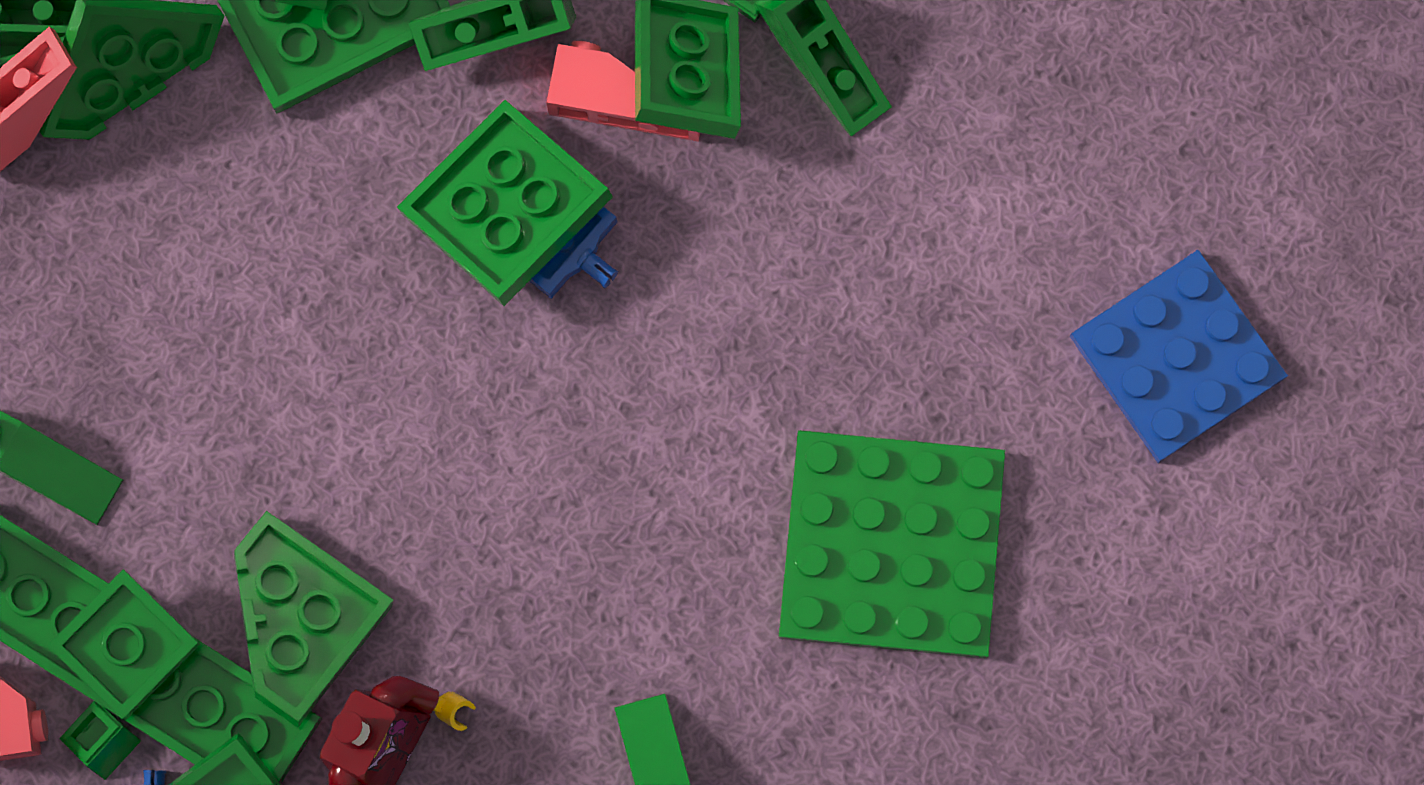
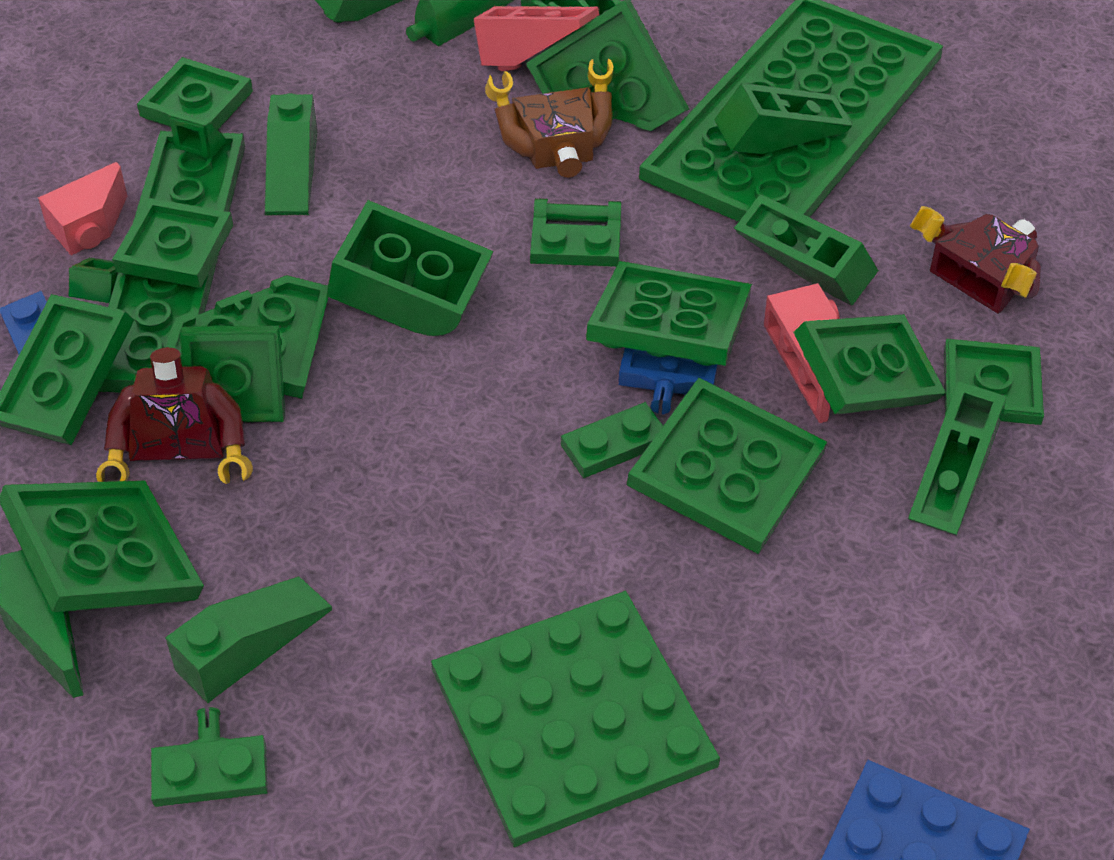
camera: 60 degrees right, 30 degrees down
(158, 156) = (555, 126): none -> dark orange torso
(306, 426) = (406, 271): none -> green brick
(335, 232) = (576, 243): none -> green plate
(354, 655) = (243, 363): none -> green tile
(616, 341) = (611, 439): none -> green plate
(712, 259) = (727, 465): none -> green plate

